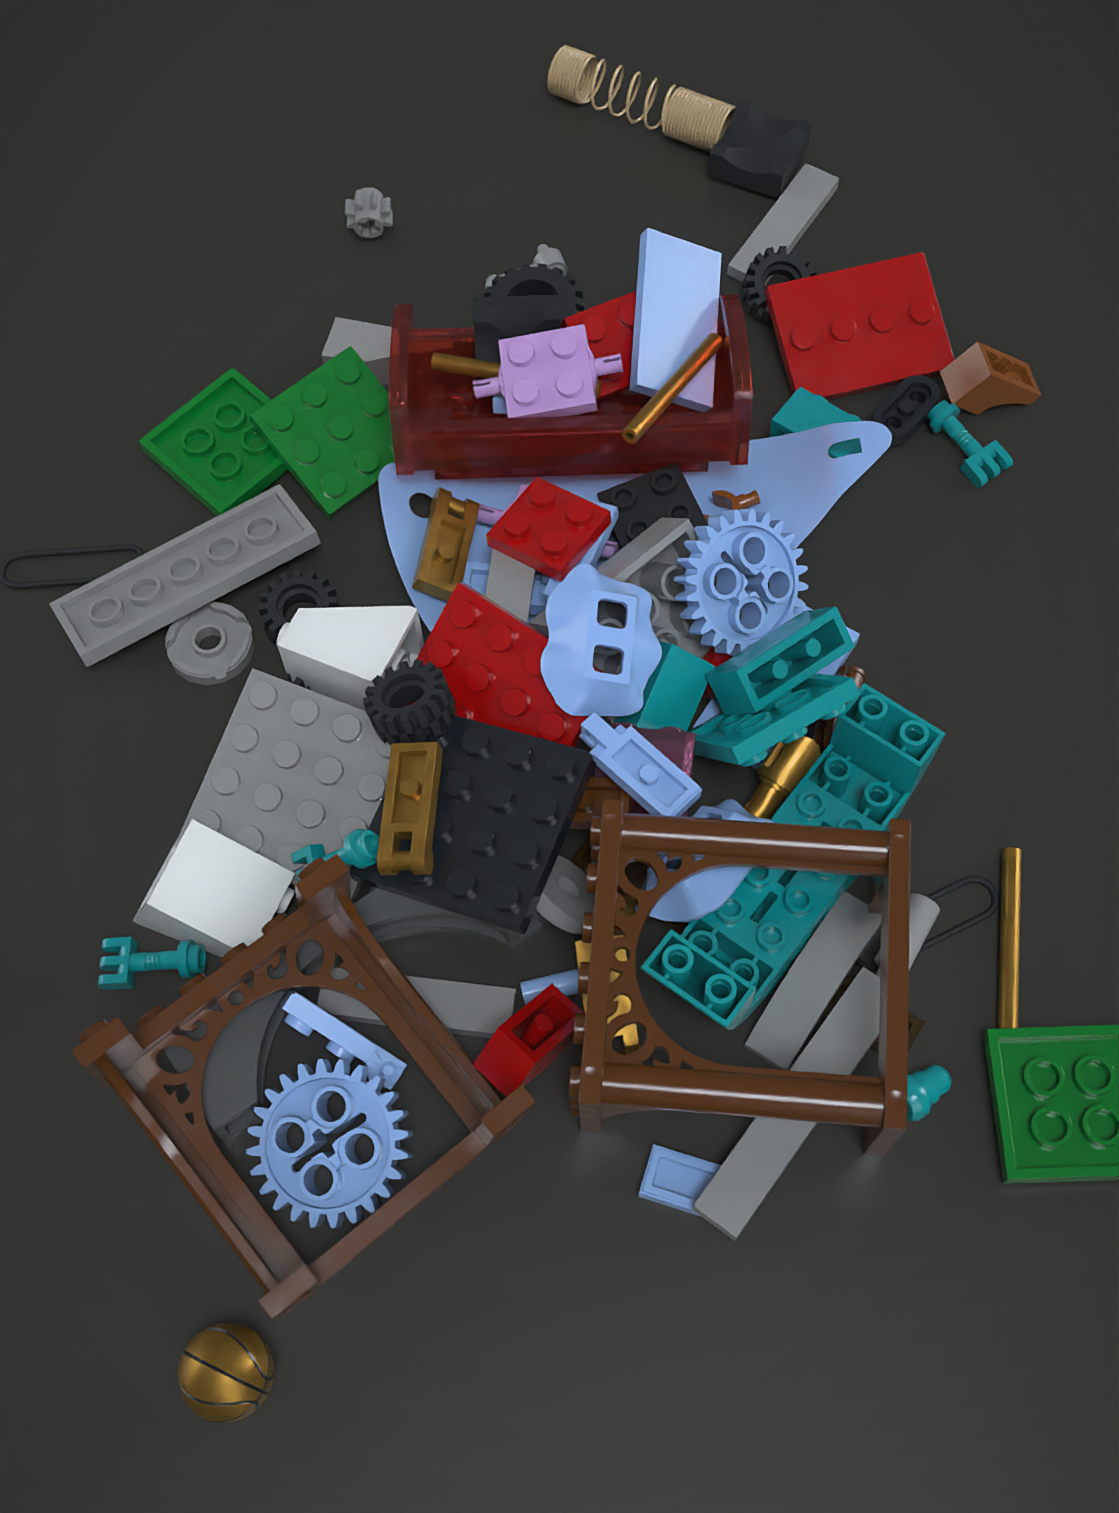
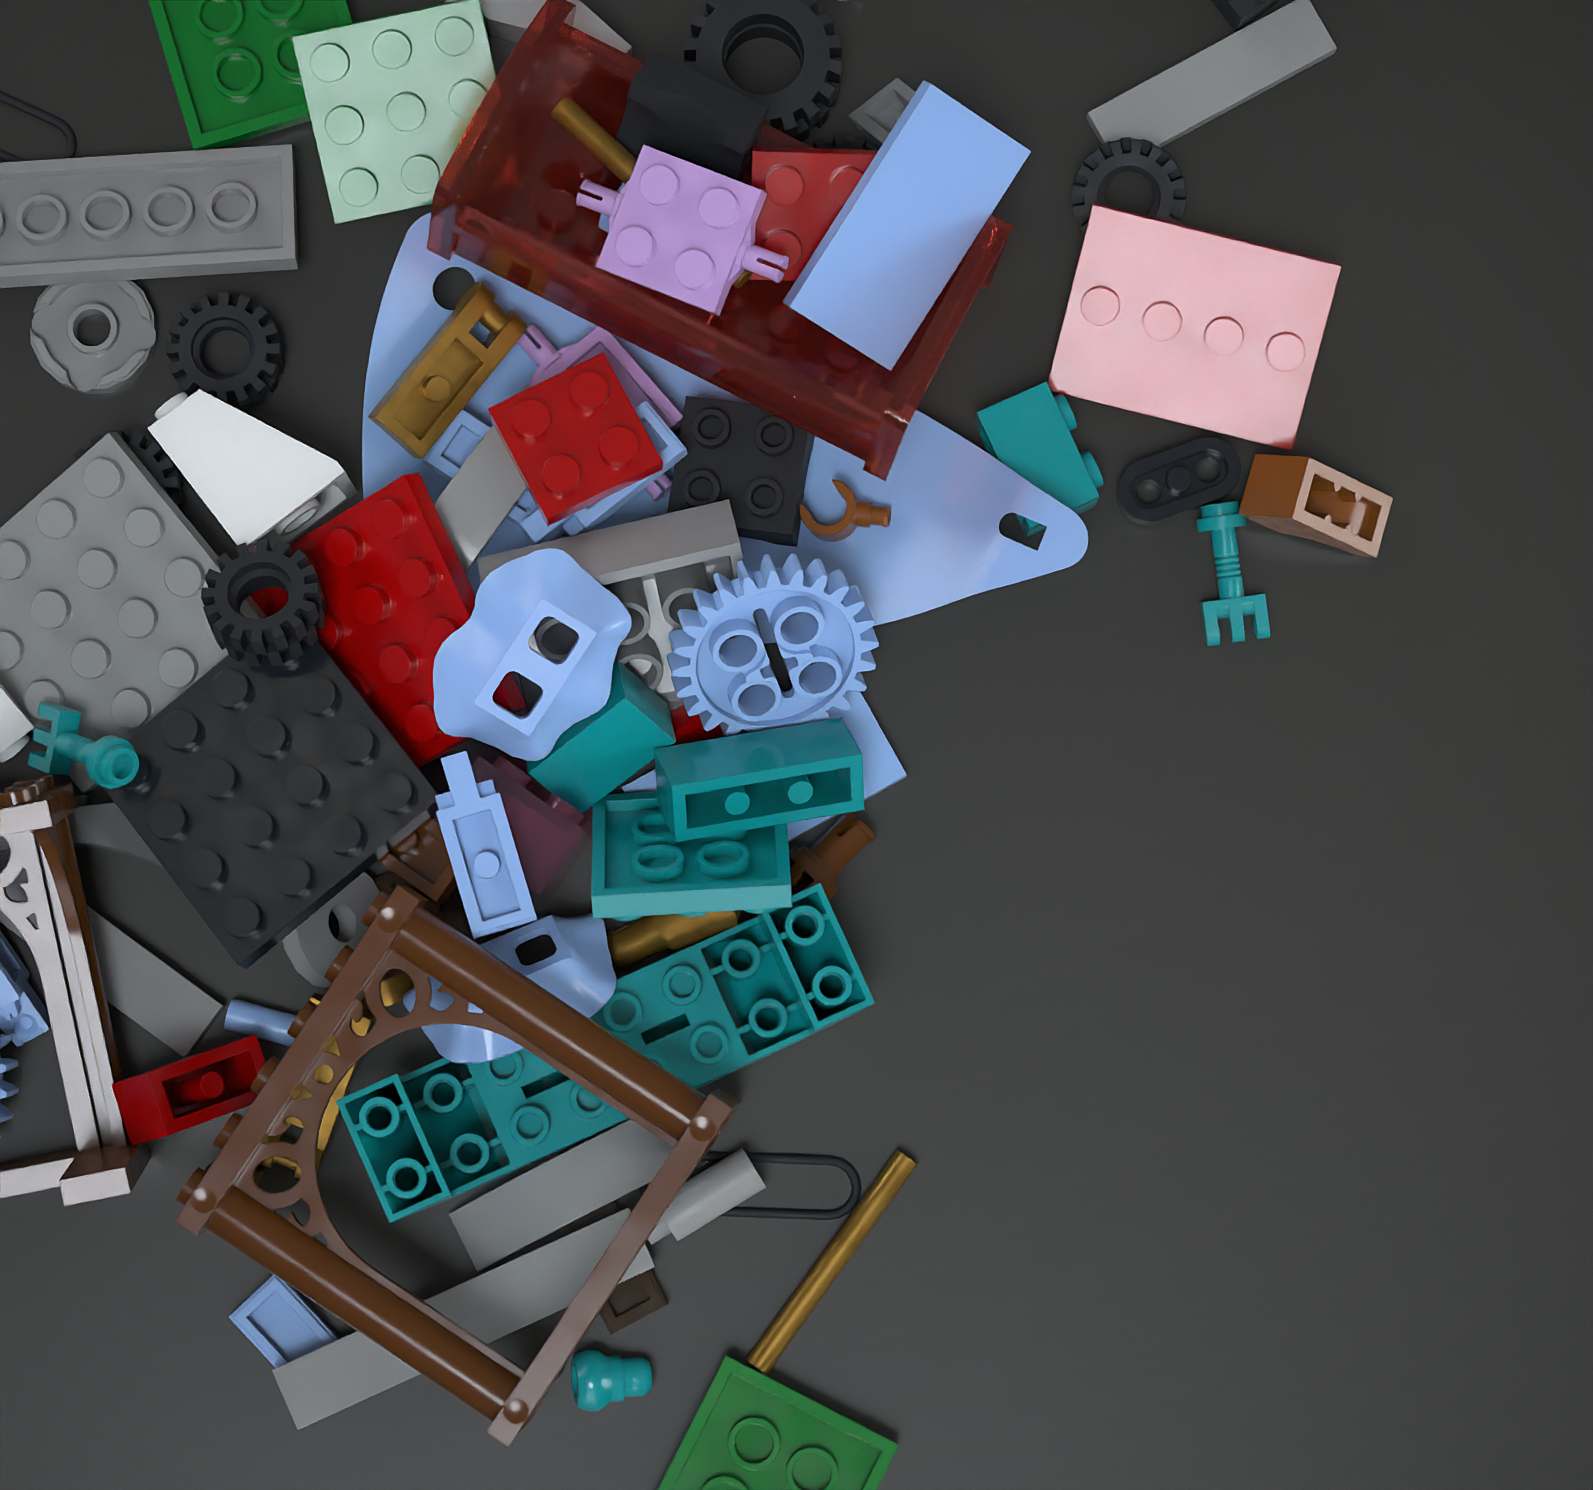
camera: 25 degrees right, 20 degrees up
(410, 808) = (191, 745): pearl gold plate -> none
(671, 388) = (831, 339): pearl gold piece -> none

